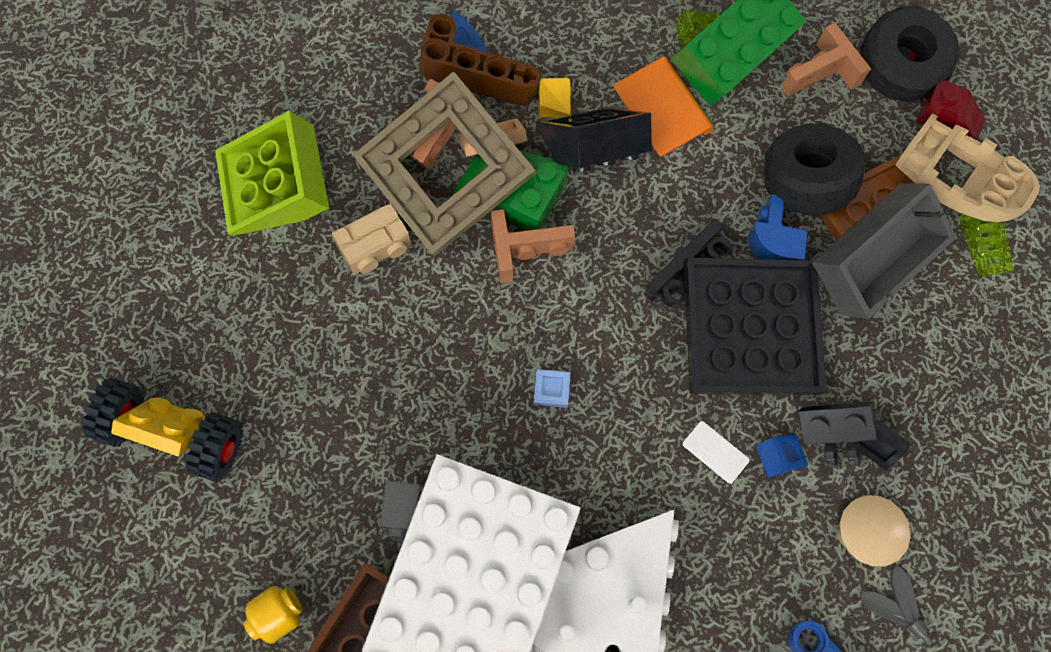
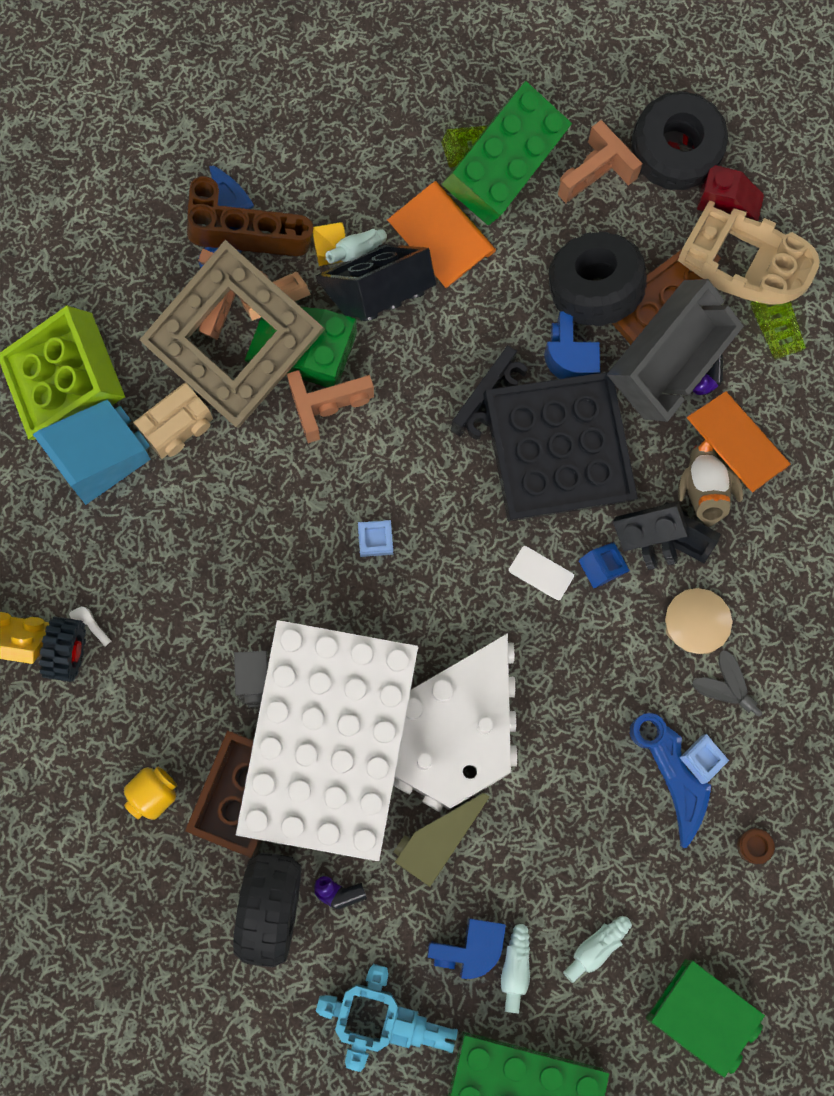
camera: 10 degrees left, 5 degrees up
(247, 418) = (86, 616): none -> white hand
(287, 253) = (94, 449): none -> dark azure slope
(579, 102) = (356, 245): none -> light aqua piece
(903, 391) = (709, 485): none -> animal
(915, 286) = (712, 378): none -> arm
(938, 352) = (739, 441): none -> orange piece

